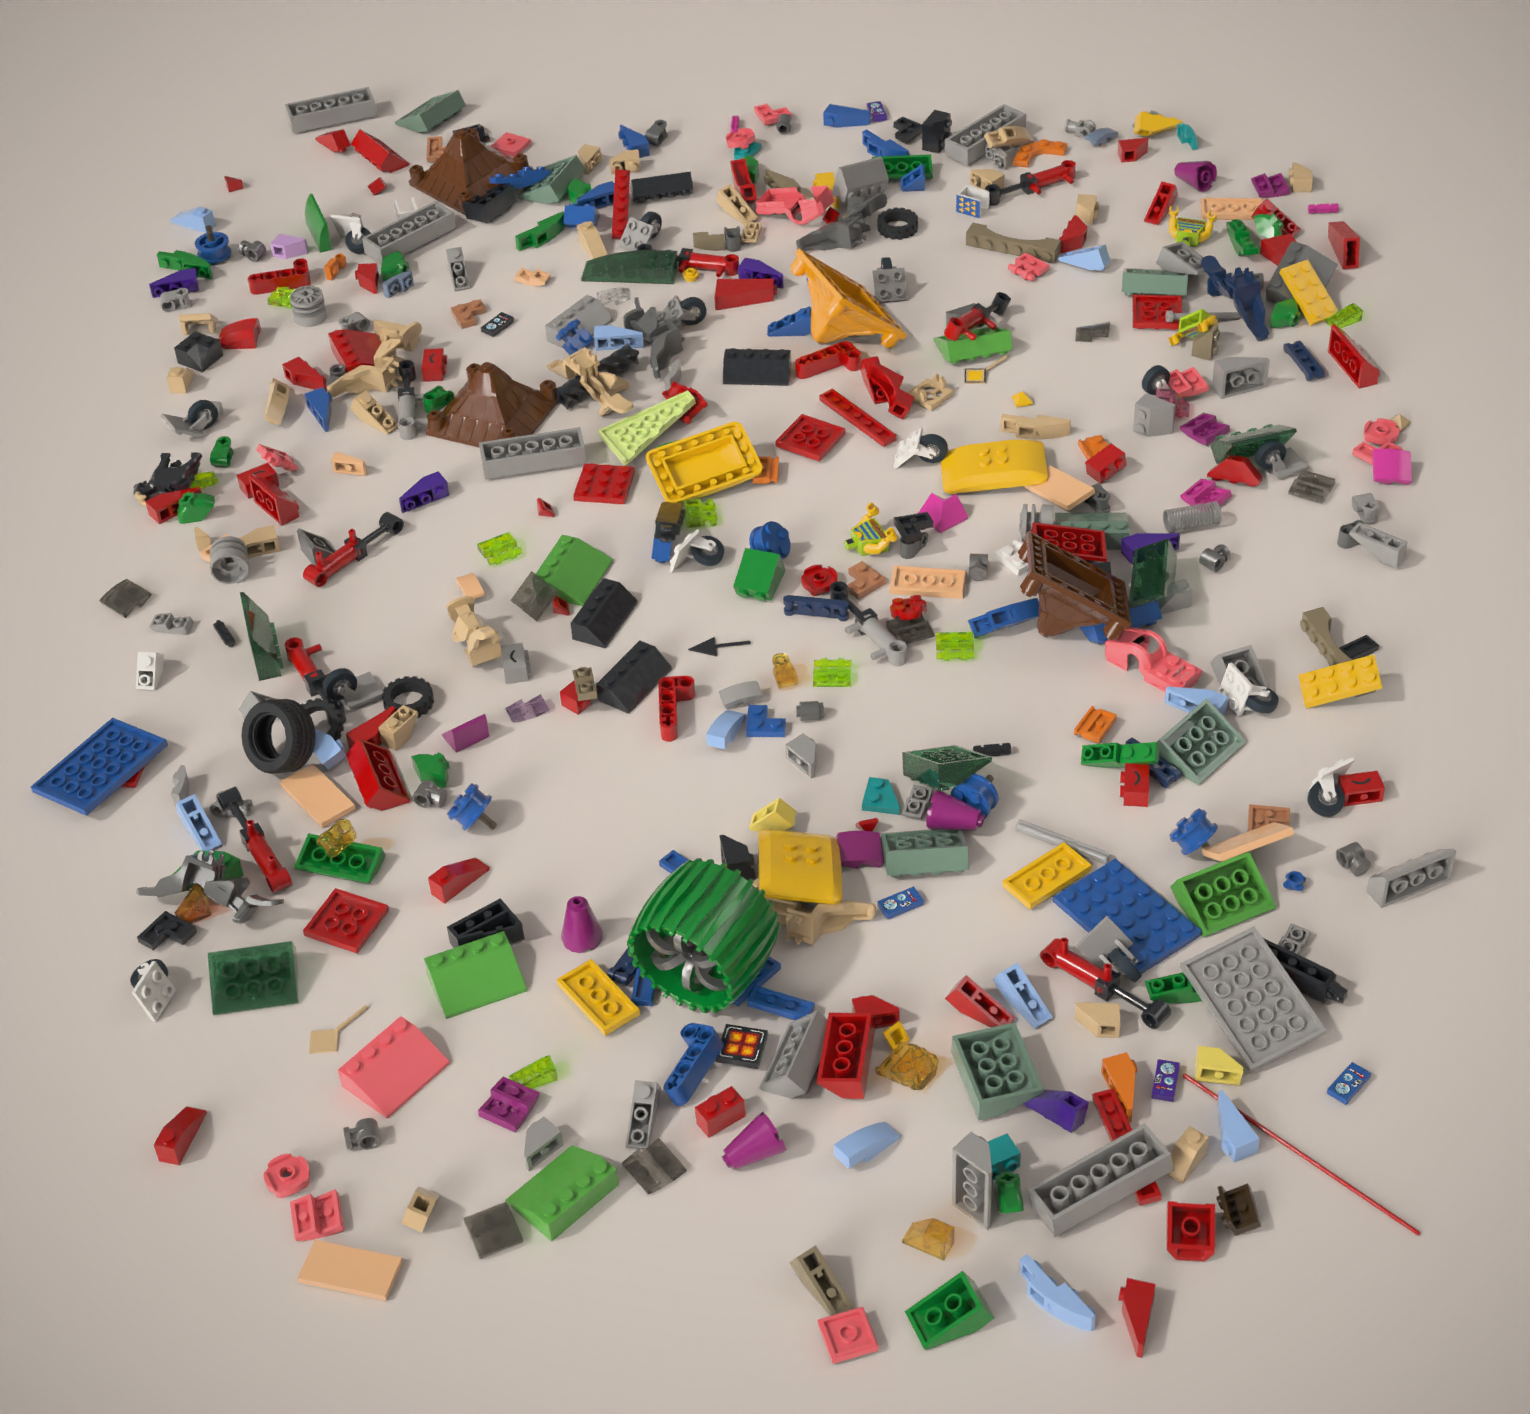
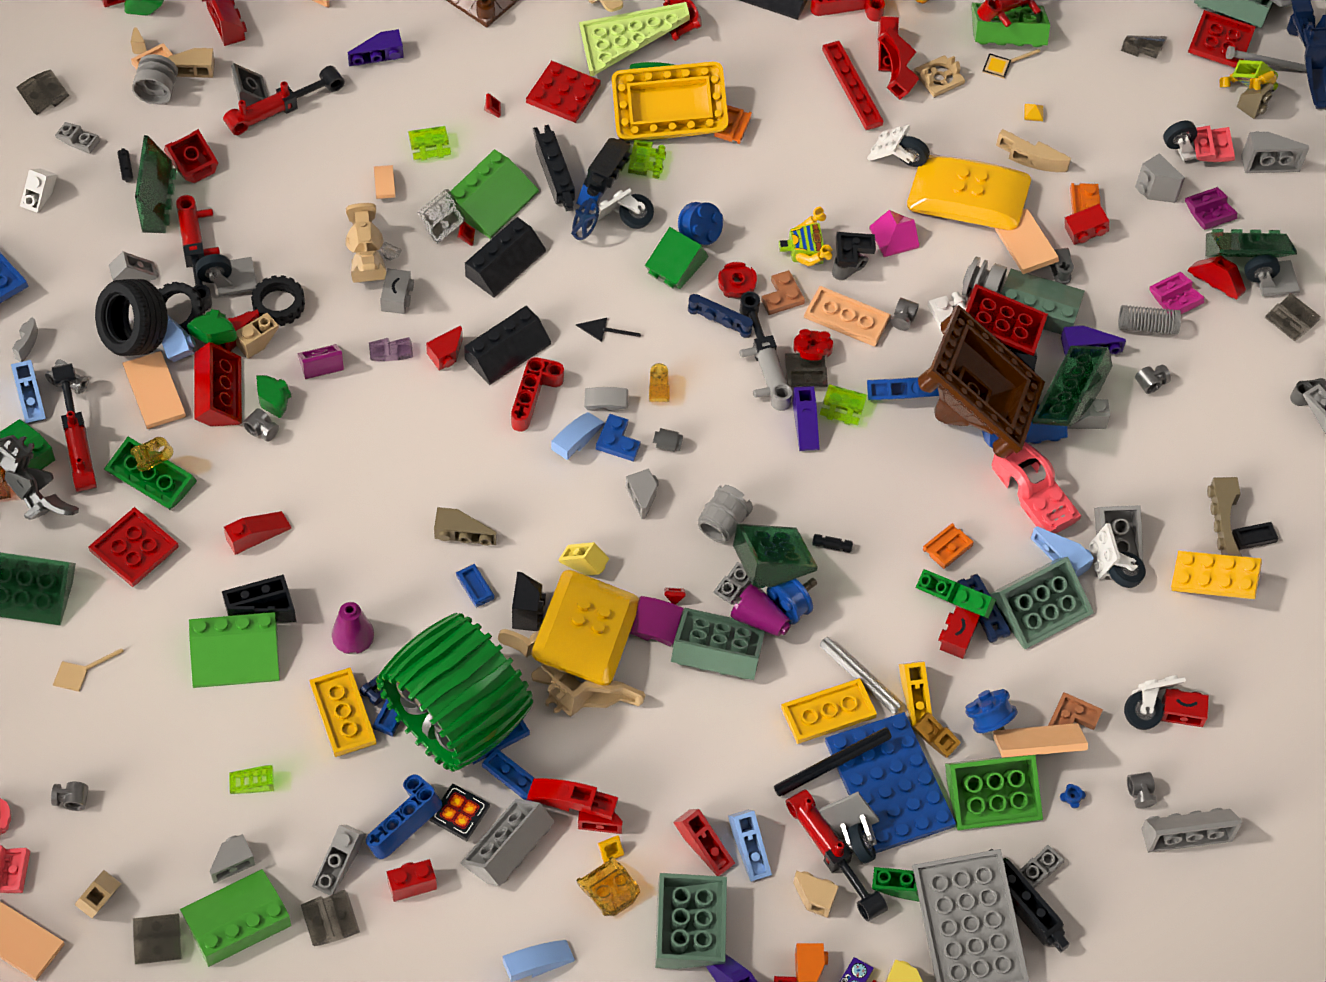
camera: 10 degrees right, 15 degrees up
(286, 609) = (192, 157): none -> red slope
(357, 726) = (212, 328): none -> green piece
(392, 1067) = (123, 730): coral slope -> none
(471, 807) = (292, 456): blue wheel -> none
(509, 1104) = (218, 805): magenta slope -> none
(532, 453) = (501, 33): light grey brick -> none
(584, 683) = (453, 343): dark tan slope -> none
(620, 537) = (554, 167): none -> black hinge
(649, 824) = (458, 526): none -> dark tan slope
(665, 566) = (585, 219): none -> dark blue wheel
(754, 1143) = (430, 927): magenta cone -> none
(810, 437) = (794, 96): red plate -> none
(832, 677) = (706, 404): clear neon green plate -> none
(845, 996) = (572, 795): none -> red slope
(846, 1054) = (553, 856): red slope -> none
(880, 797) = (700, 564): teal wing -> none
(886, 748) = (724, 513): none -> light grey piece
(900, 902) = (673, 695): blue tile -> none
(926, 661) = (806, 418): none -> dark purple slope
(1068, 911) = (832, 761): none -> black axle
(1119, 839) = (915, 689): none -> yellow slope
(1154, 870) = (935, 735): none -> pearl gold slope
(1172, 396) = (1188, 166): clear pink slope -> none

